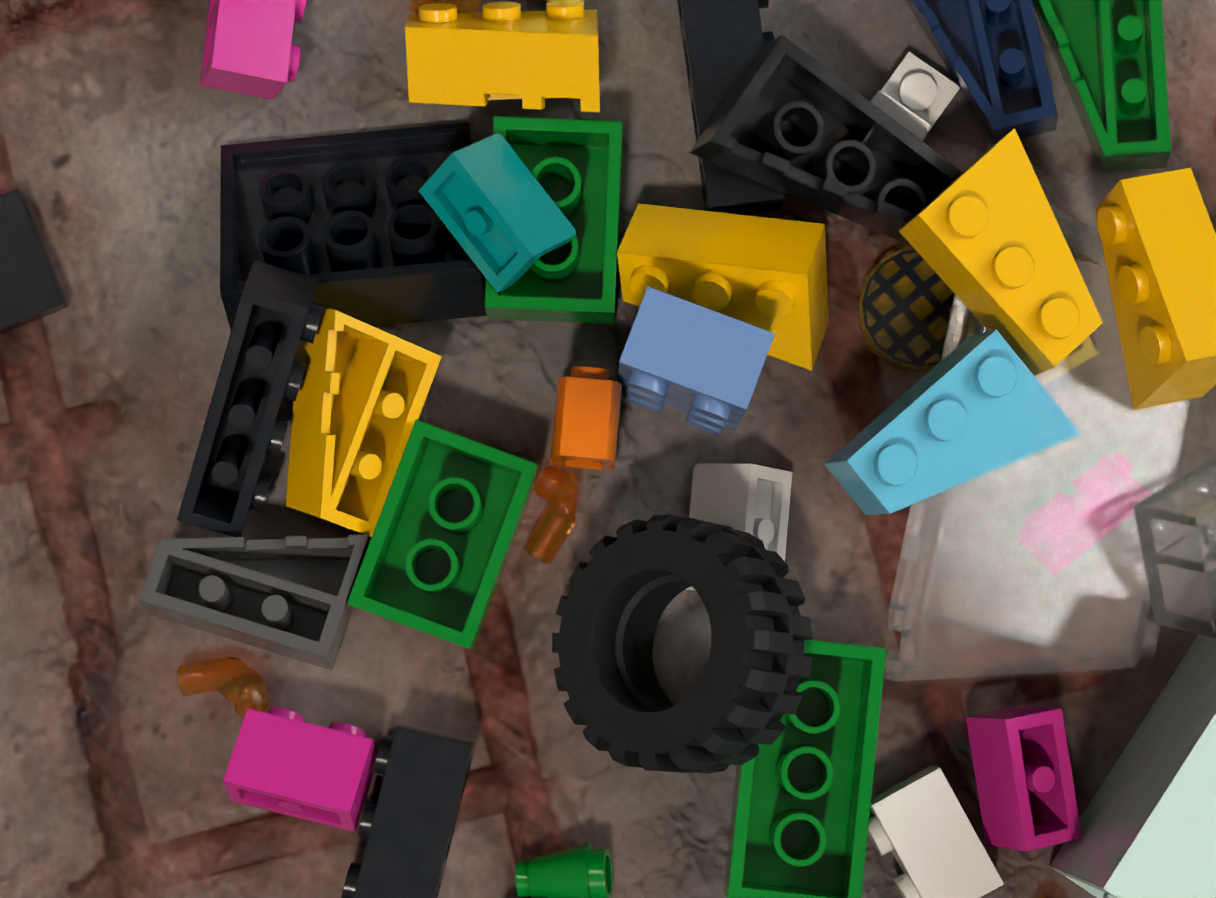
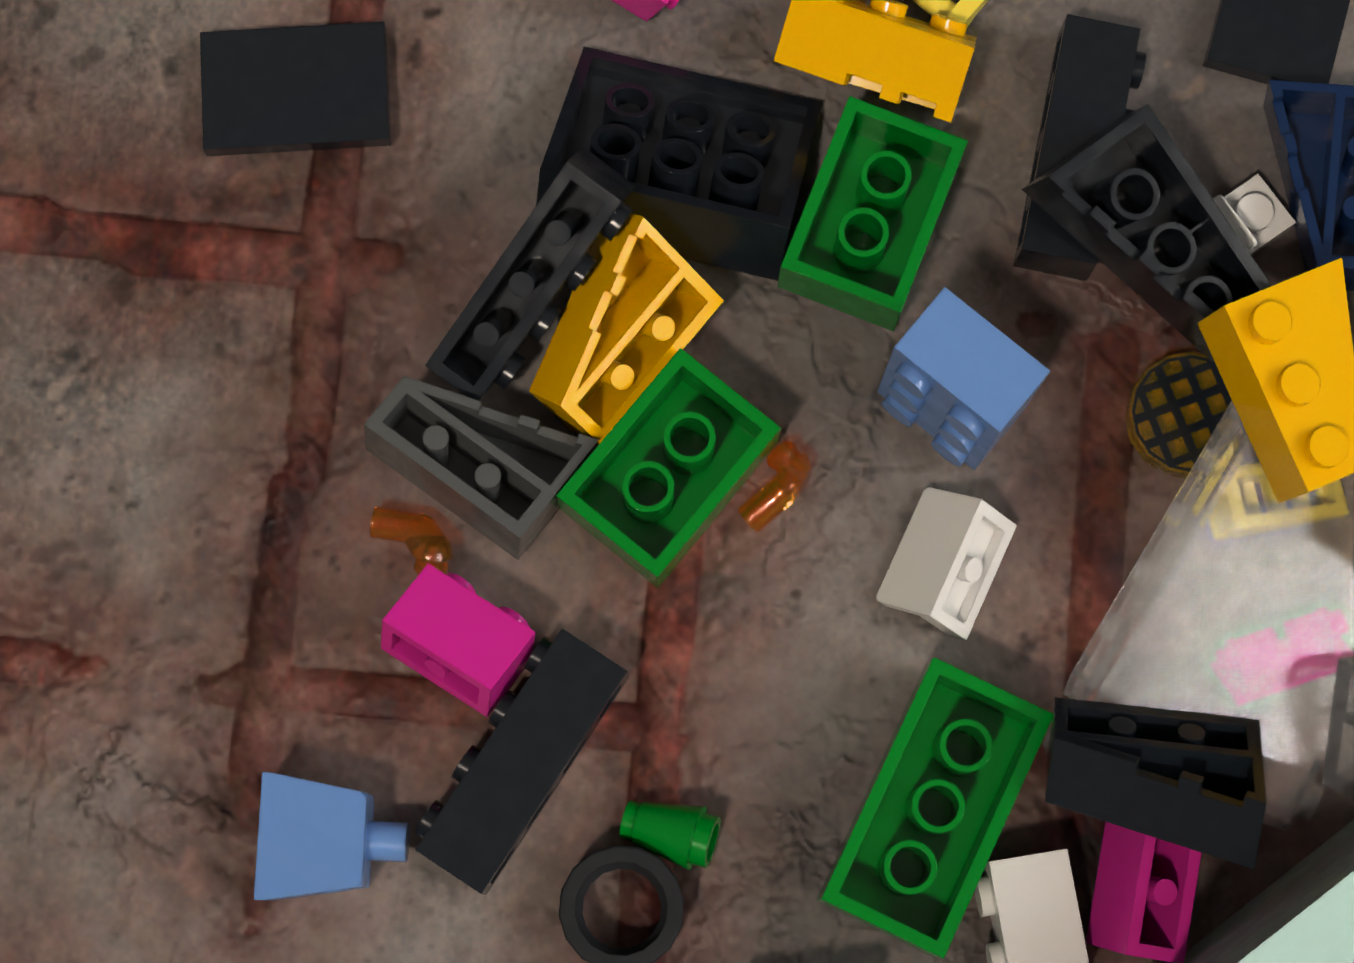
camera: 20 degrees right, 5 degrees down
(496, 210) = (822, 179): teal panel -> none
(586, 420) = (839, 406): orange brick -> none
(611, 632) = (916, 683): black tyre -> none
(735, 265) = (1040, 307): yellow wedge -> none
(951, 427) = (1192, 517): medium azure wedge -> none
(1004, 675) = (1161, 774): none -> black wedge

